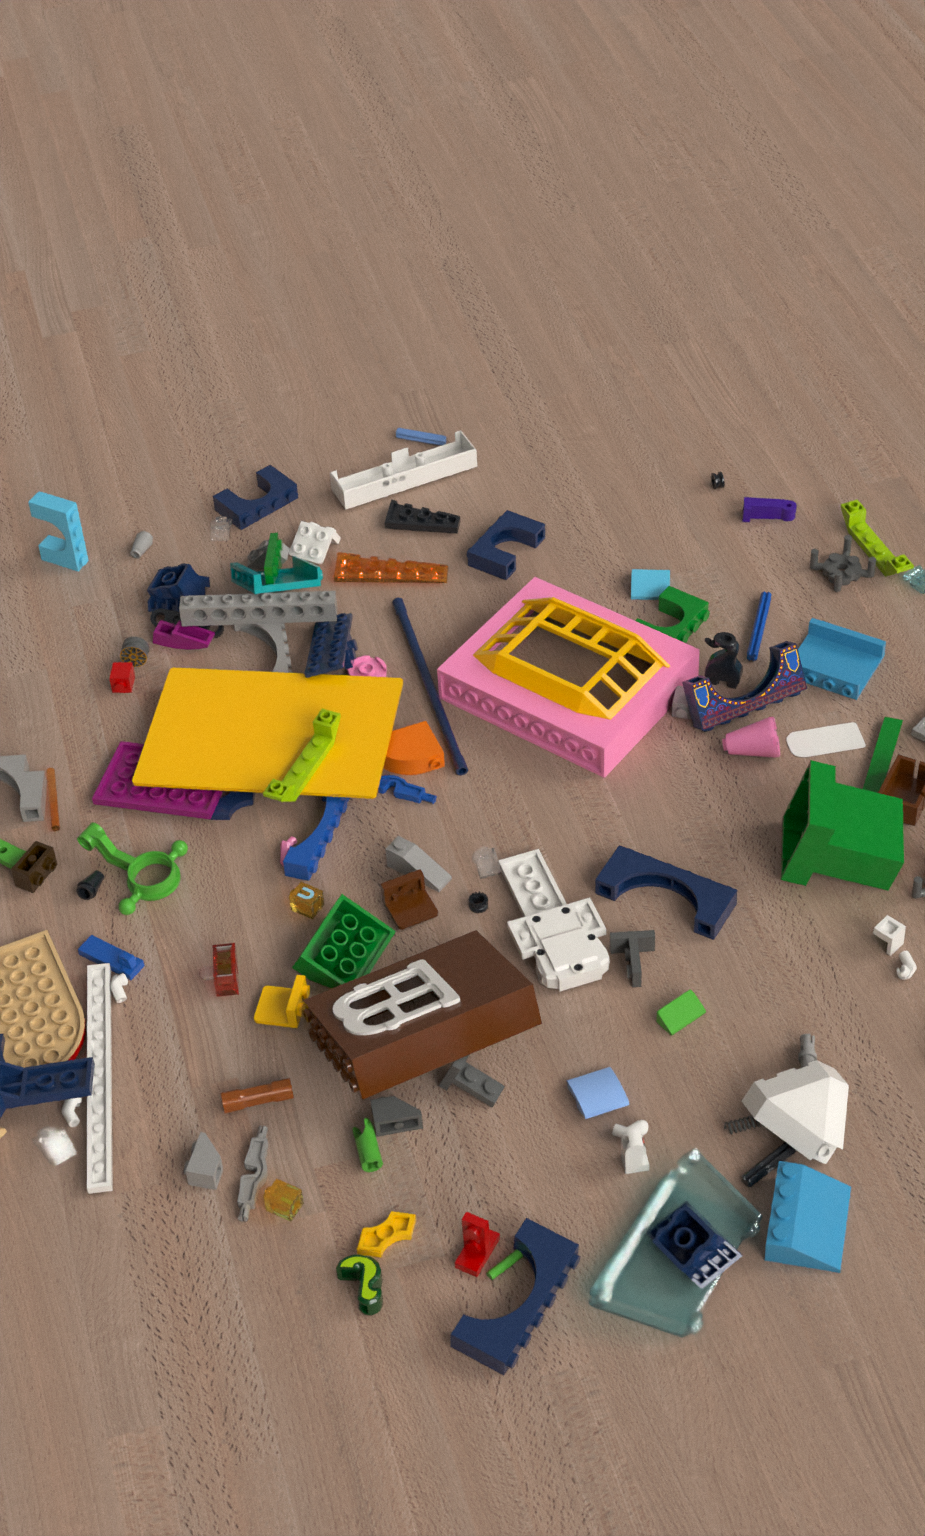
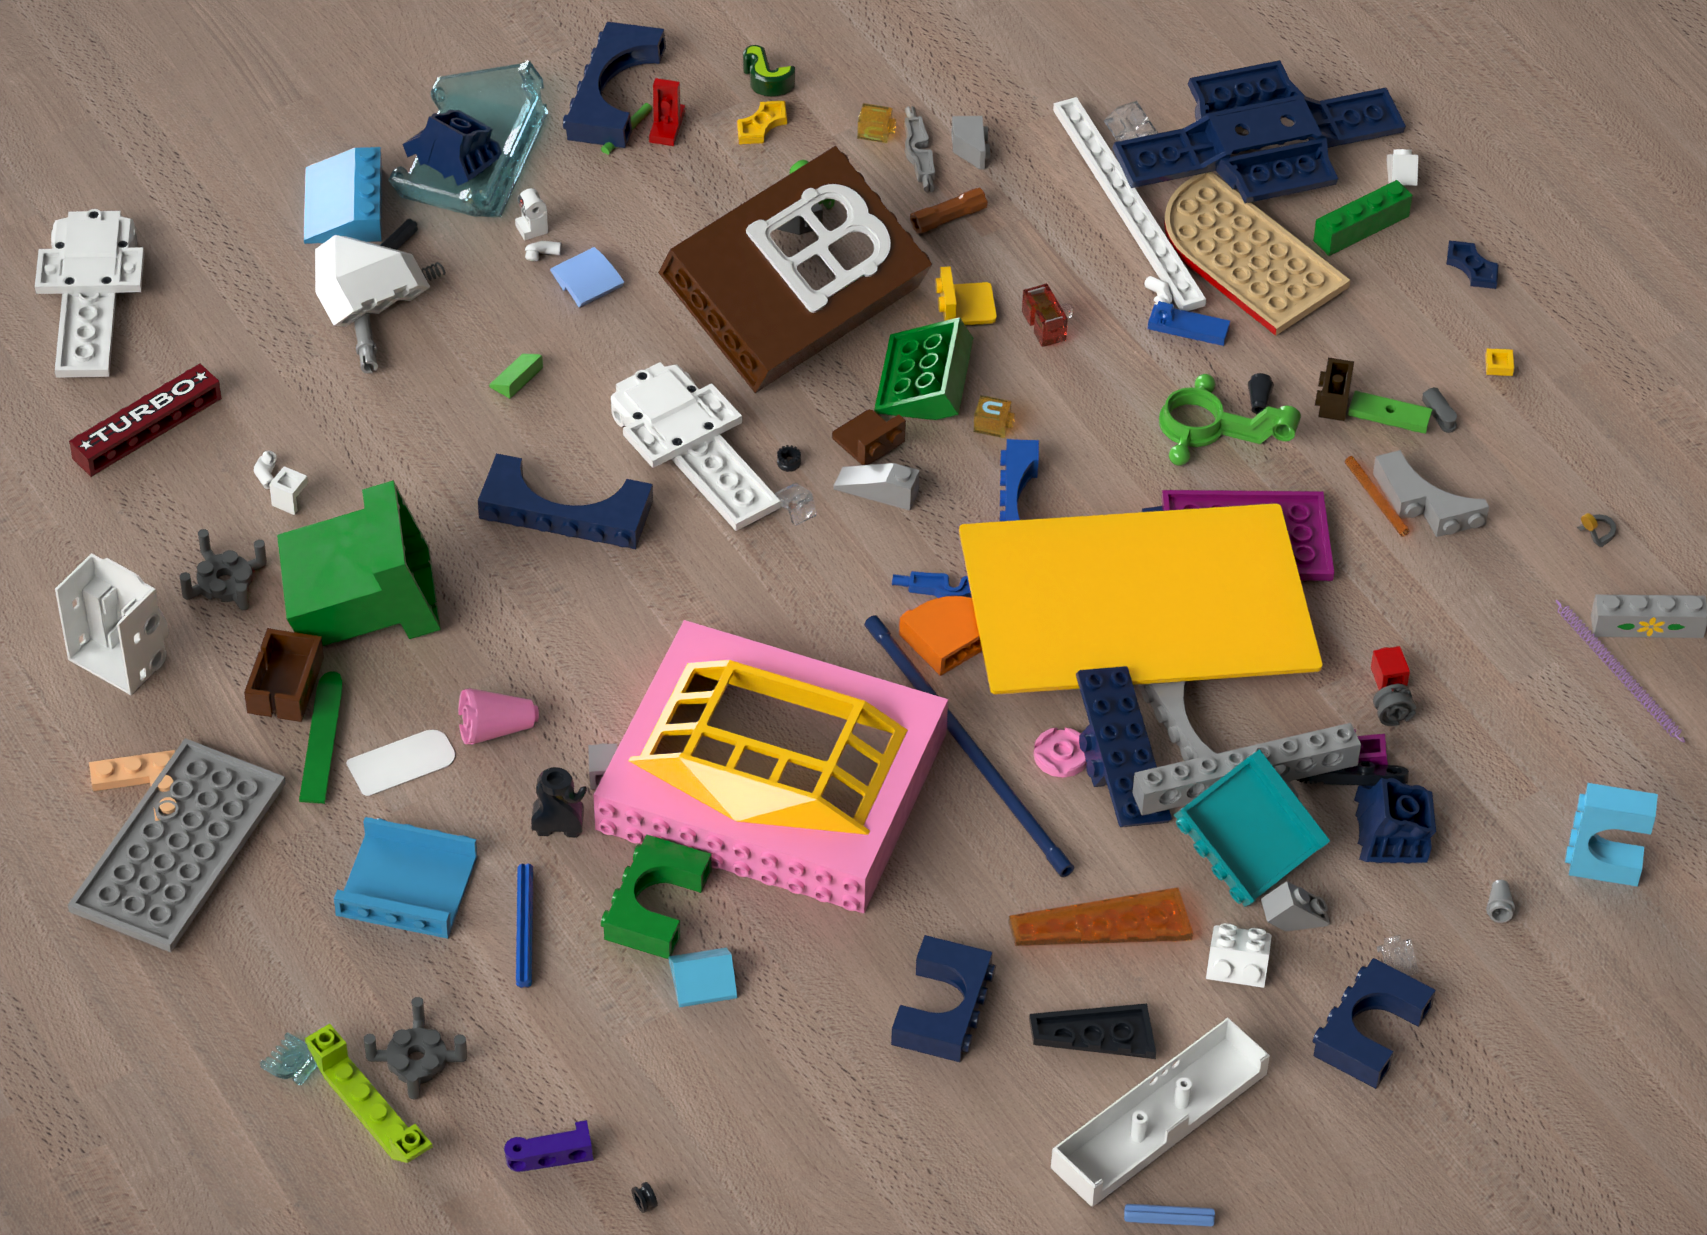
camera: 160 degrees right, 5 degrees up
(273, 558) = (1265, 845): green wing -> none
(284, 847) = (1047, 481): bright pink bar -> none
(307, 763) = (1066, 527): lime slope -> none
(631, 944) = (589, 431): dark grey bracket -> none
(781, 680) = (520, 774): arch -> none

